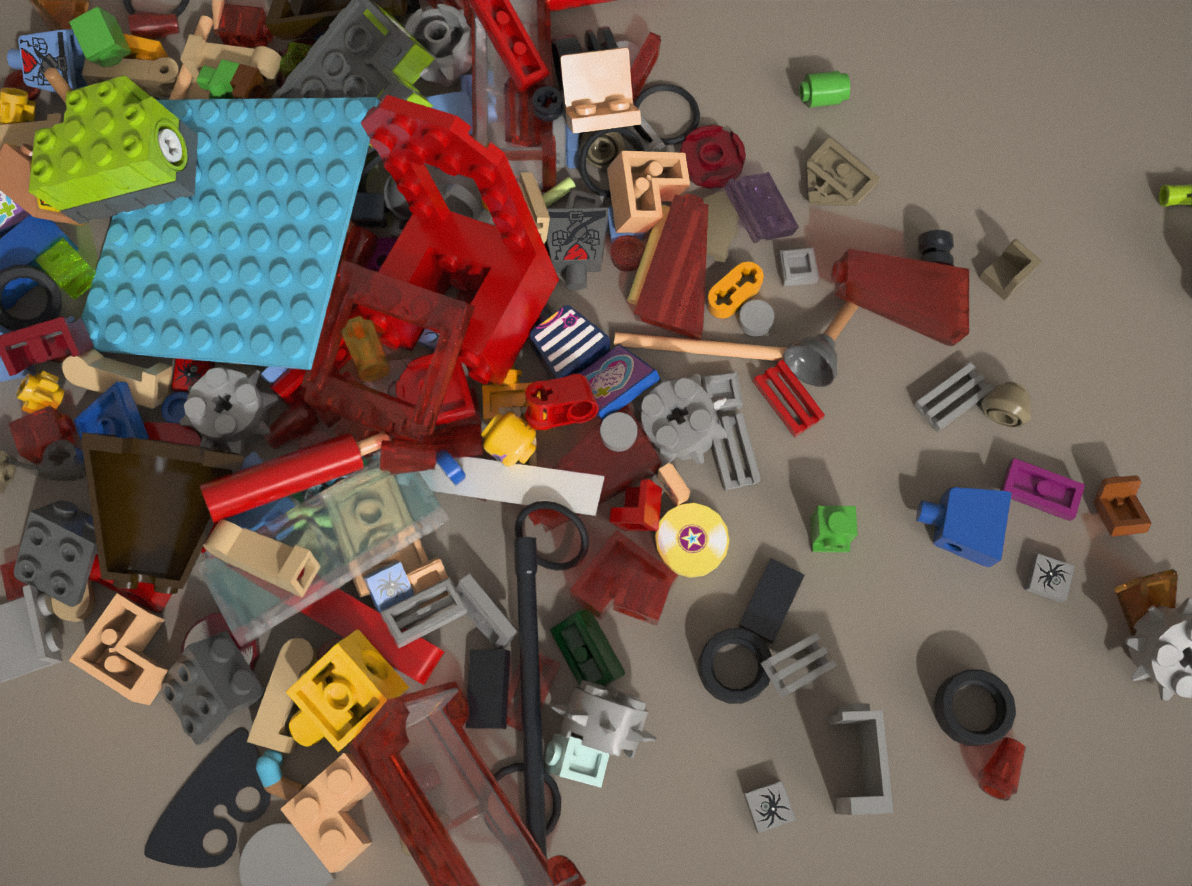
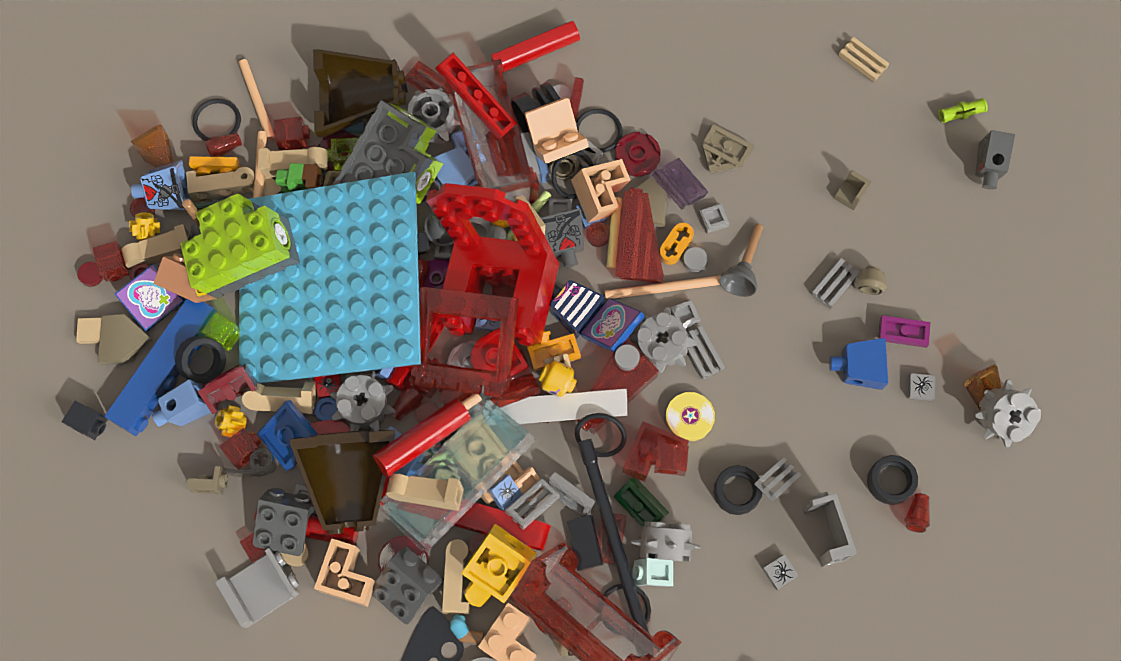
camera: 15 degrees left, 0 degrees up
(100, 37) = (199, 166): bright green brick -> none
(366, 349) = (446, 341): clear yellow piece -> none
(406, 456) = (495, 406): clear red cone -> none
(450, 467) = (522, 406): blue tile -> none
(539, 99) = (526, 144): black bush -> none
(562, 400) = (587, 345): red piece -> none
(640, 508) = (651, 403): red panel -> none
(673, 485) = (669, 383): light nougat tile -> none
(771, 600) = (750, 443): black tile -> none
(798, 389) = (735, 302): red tile -> none
(824, 88) = (702, 90): bright green brick -> none
(833, 528) = (778, 388): bright green brick -> none
(907, 291) = (790, 220): clear red slope -> none
(936, 247) = (802, 189): black wheel -> none
(1070, 93) = (865, 56): none -> tan tile
(1120, 506) = (956, 331): dark orange bracket -> none

